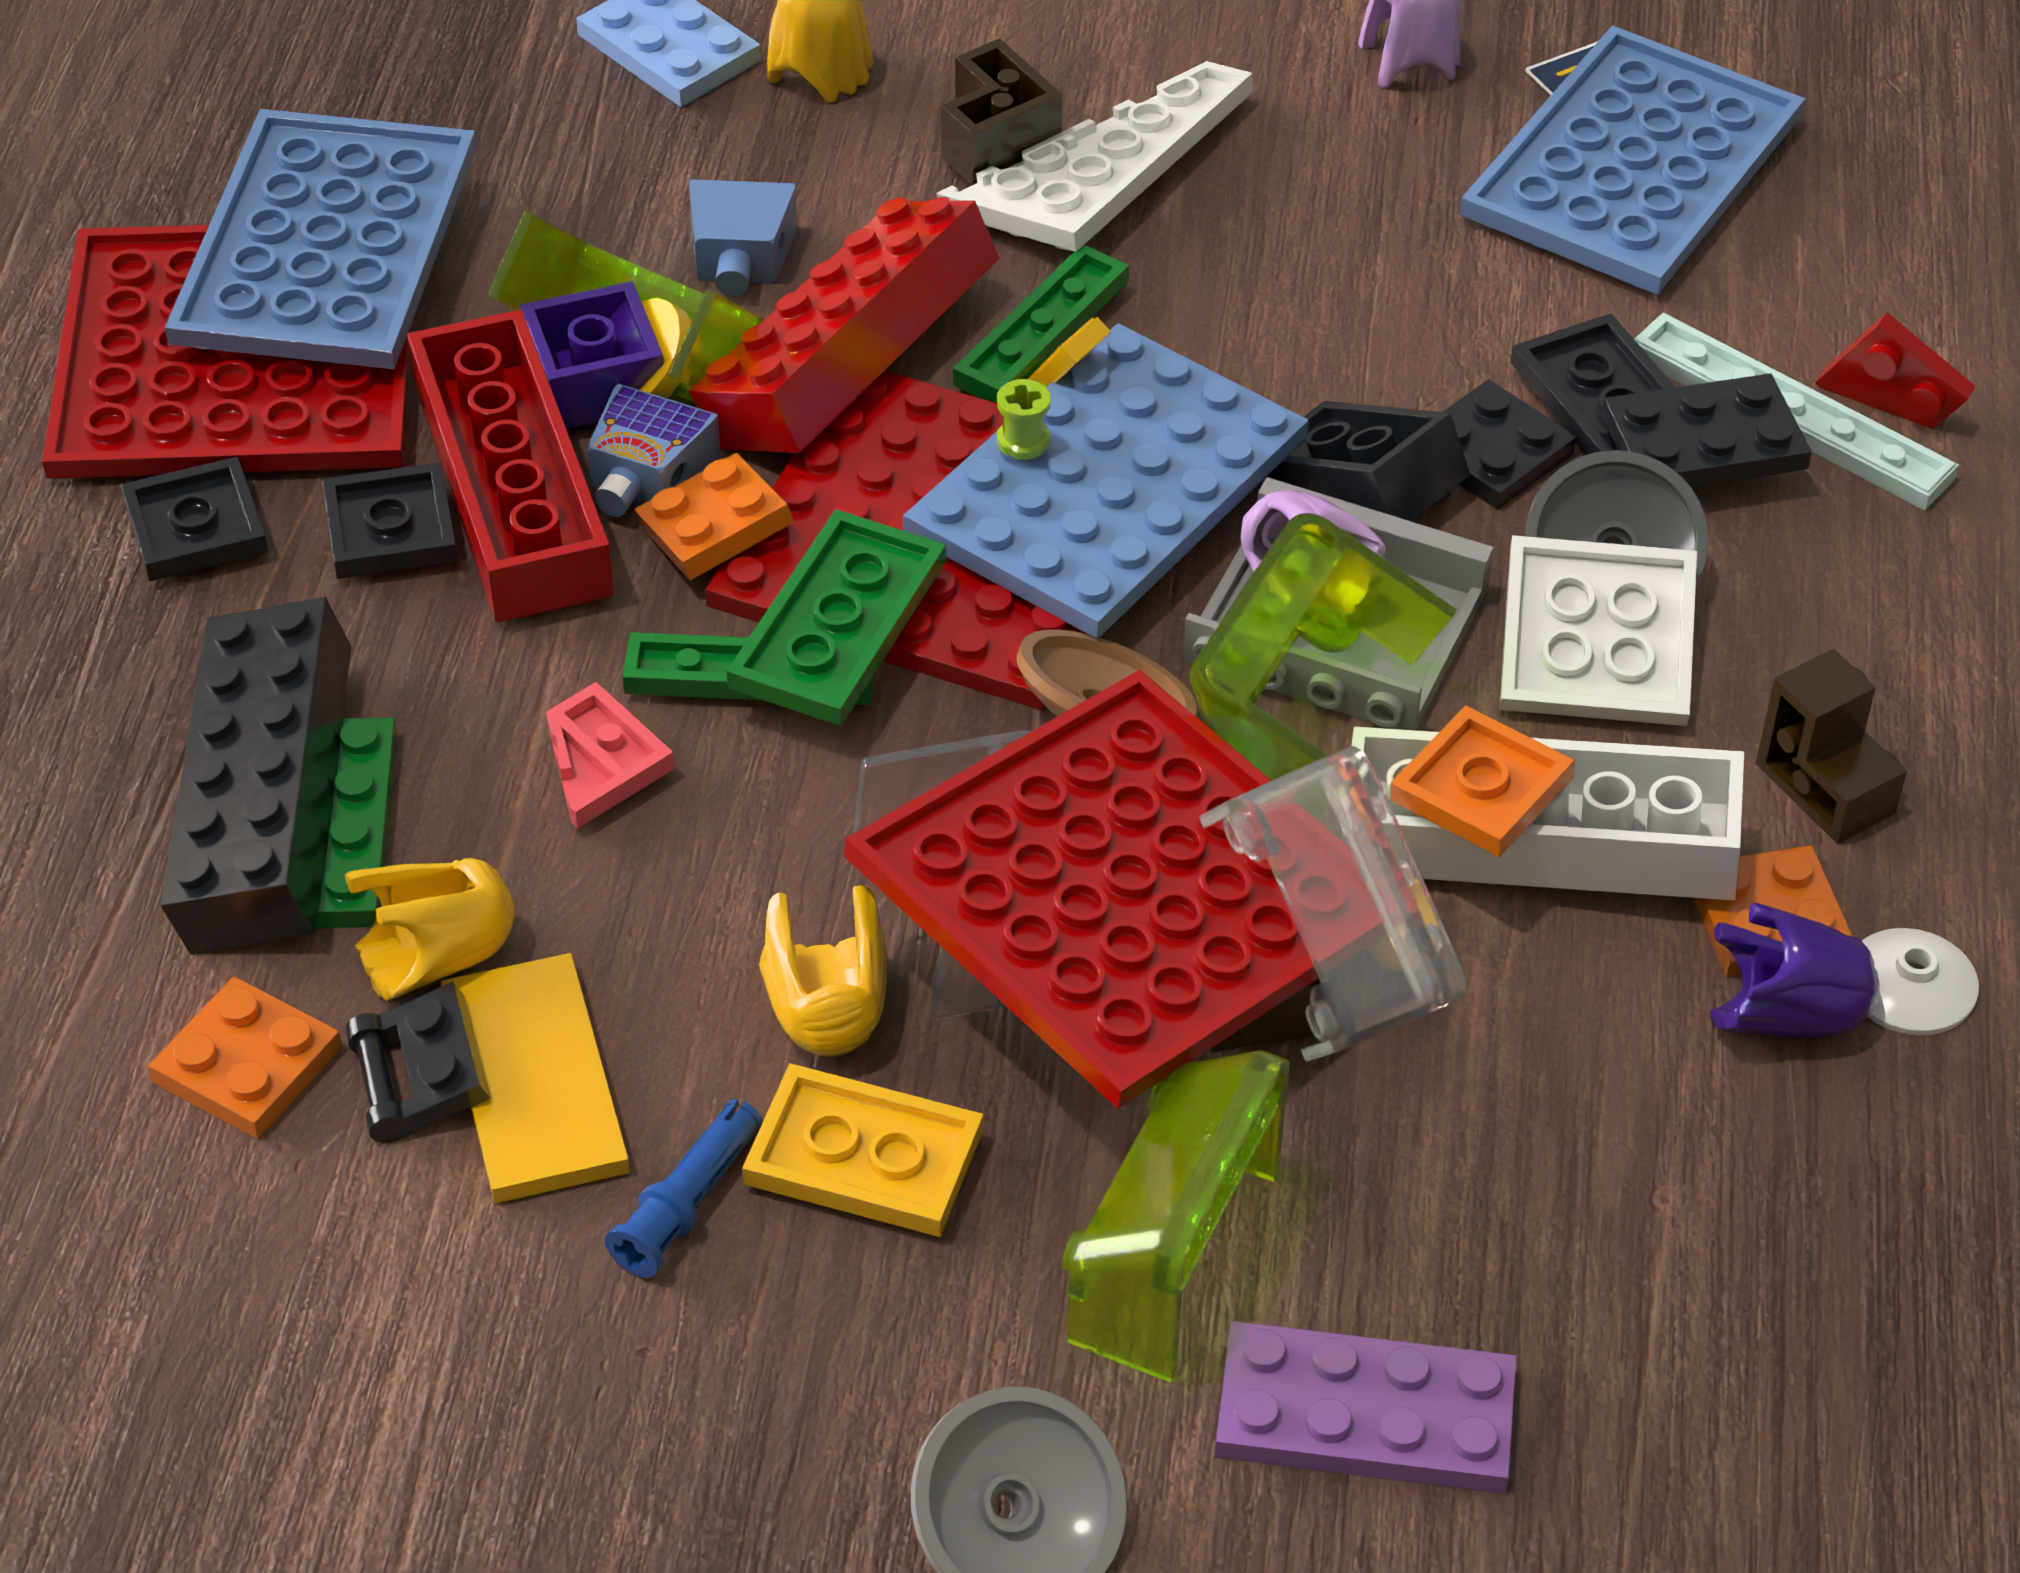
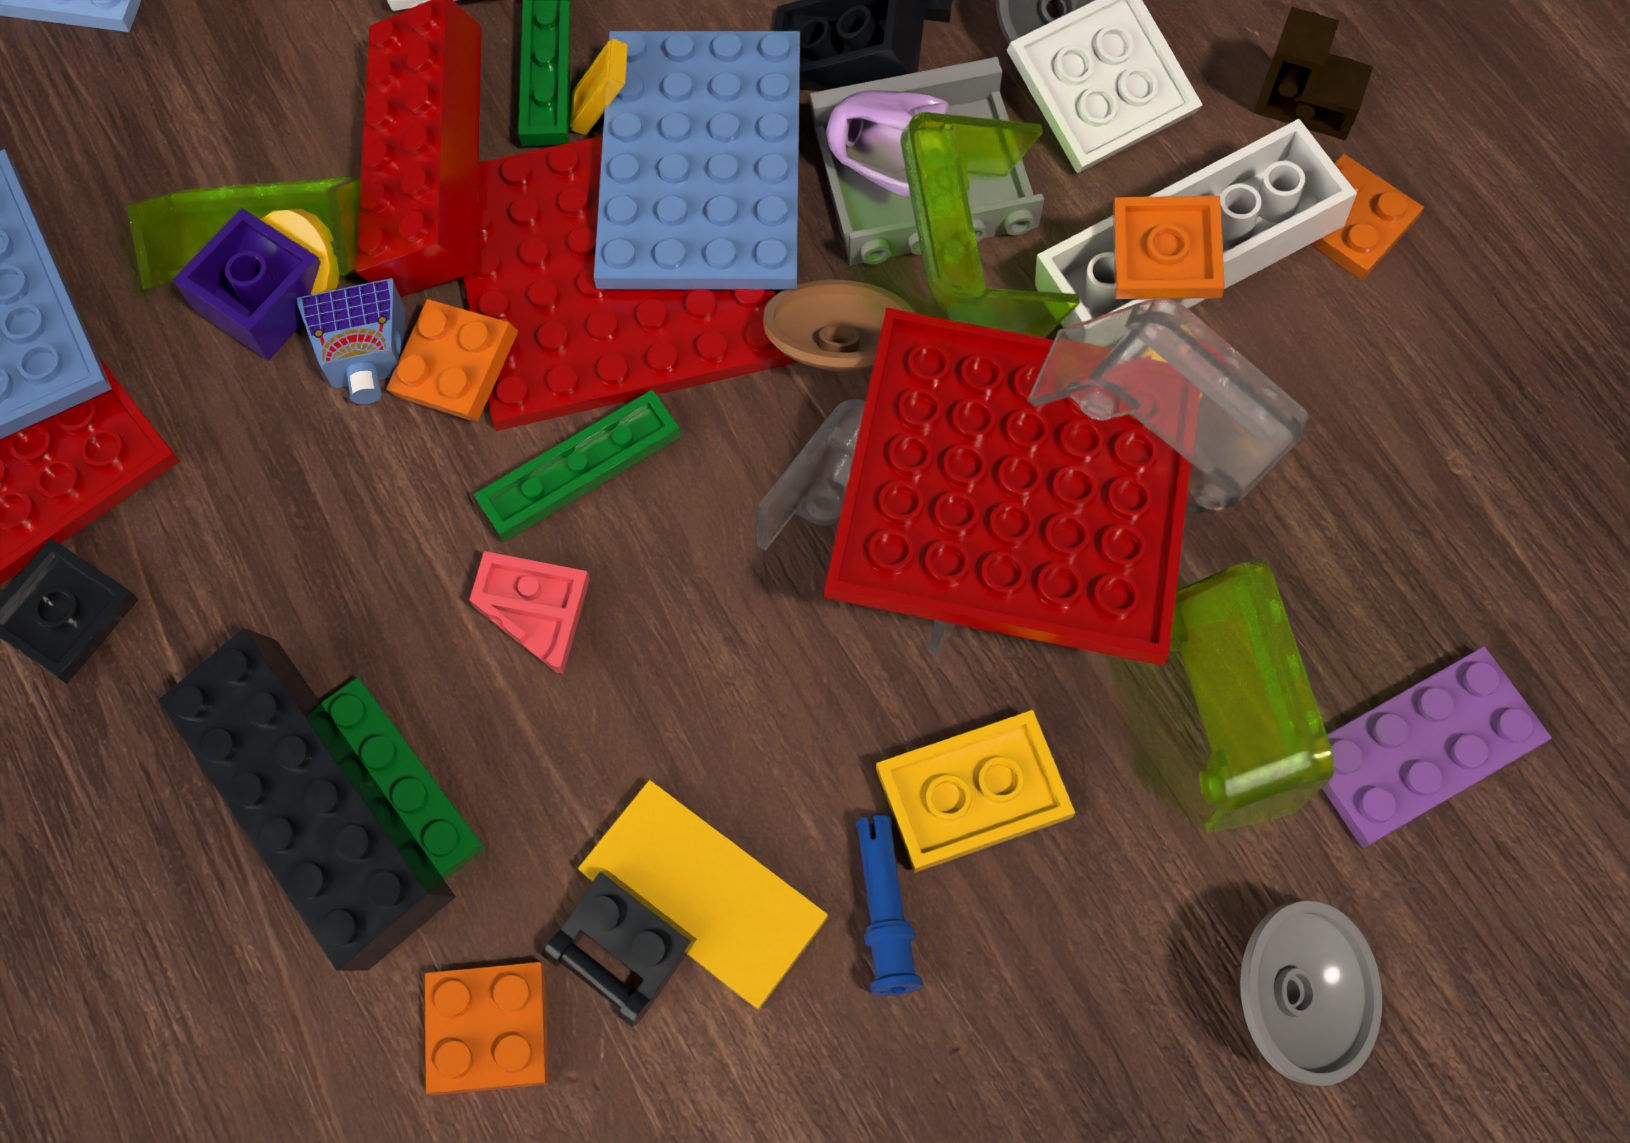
camera: 35 degrees left, 20 degrees up
(389, 520) = (212, 514): black plate -> none
(431, 921) = (540, 835): yellow hair -> none
(510, 466) = (269, 413): red brick -> none
(741, 231) = (268, 114): medium blue torso -> none
(826, 993) = (850, 681): yellow hair -> none
(836, 617) = (617, 390): green plate -> none
(1023, 411) = (627, 145): lime bush -> none
(1796, 987) = (1428, 264): dark purple hair -> none
(1922, 981) = (1459, 224): white dish -> none

